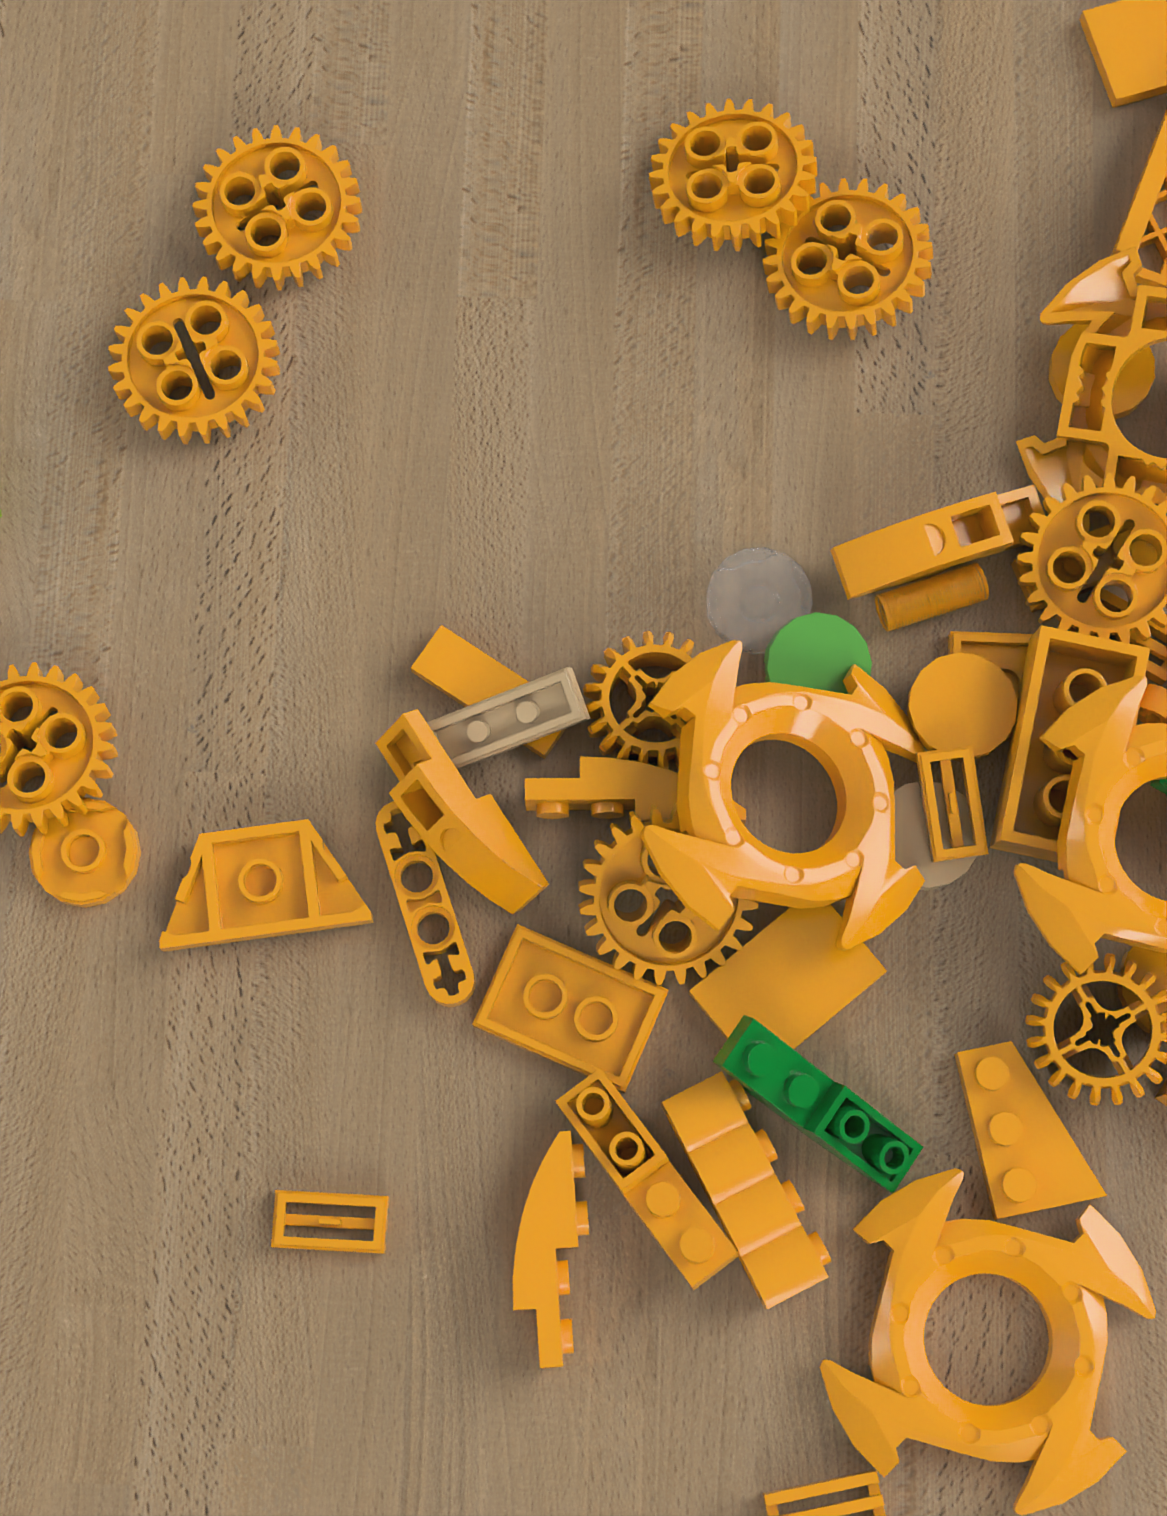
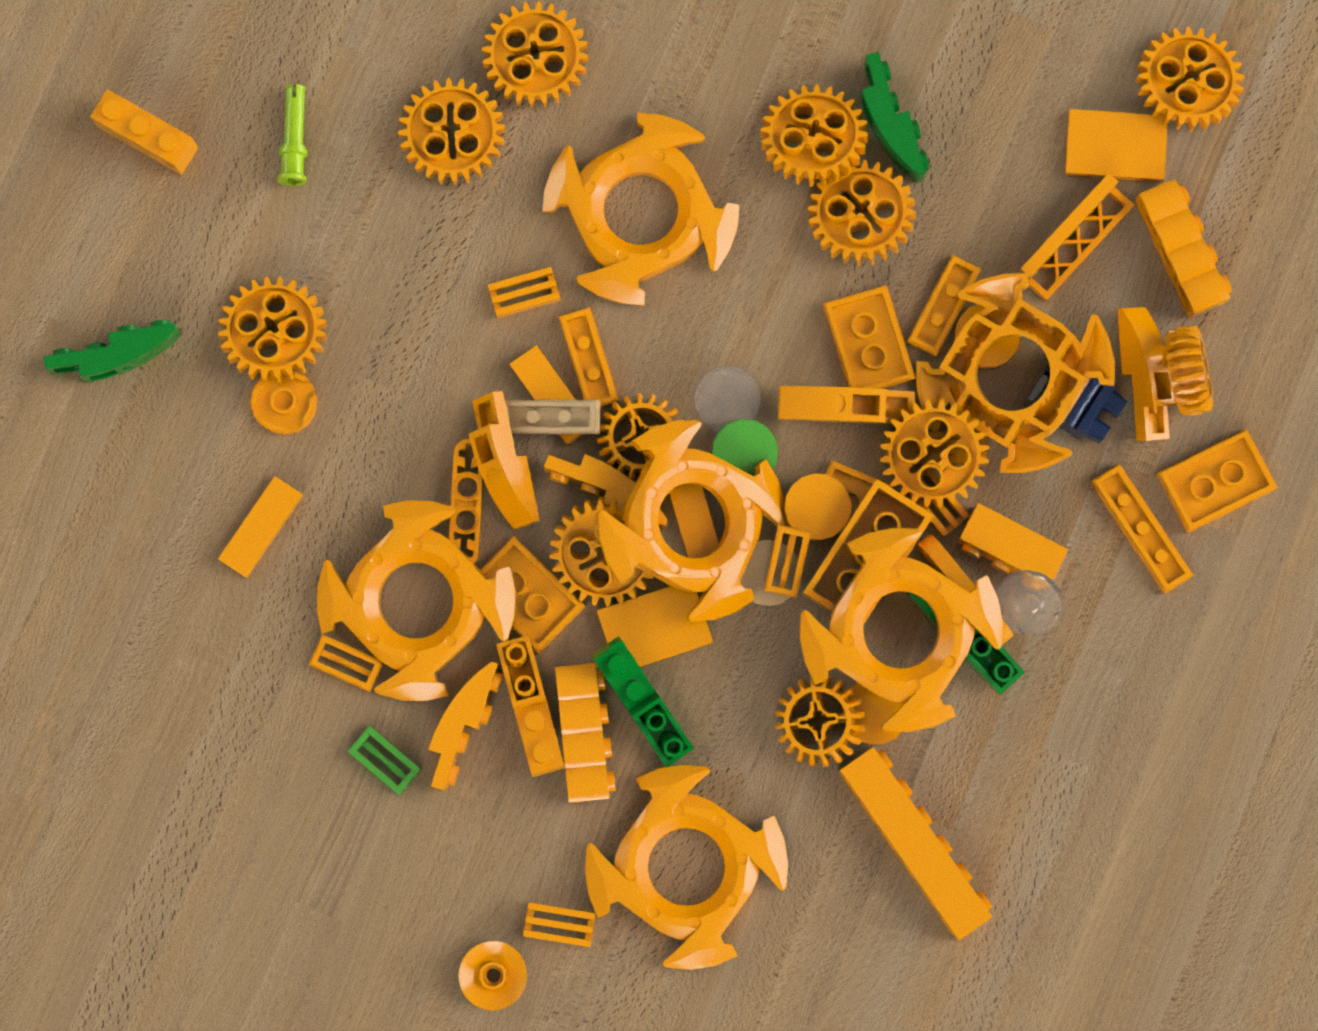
camera: 20 degrees right, 5 degrees up
(117, 1059) = (260, 527): none -> light orange tile
(260, 887) = (376, 459): light orange wing -> none
(315, 1115) = (360, 600): none -> light orange piece
(381, 538) = (520, 280): none -> light orange tile
(402, 1337) = (406, 778): none -> bright green tile
(502, 291) = (647, 155): none -> light orange piece
(525, 613) = (588, 357): none -> light orange tile
(782, 797) = (694, 520): none -> light orange tile
(843, 129) = (893, 131): none -> green slope
(894, 607) = (845, 438): light orange piece -> none
(932, 436) = (869, 340): none -> light orange tile
(1019, 1137) = (751, 763): light orange wing -> none
(1020, 351) = (943, 306): none -> light orange tile

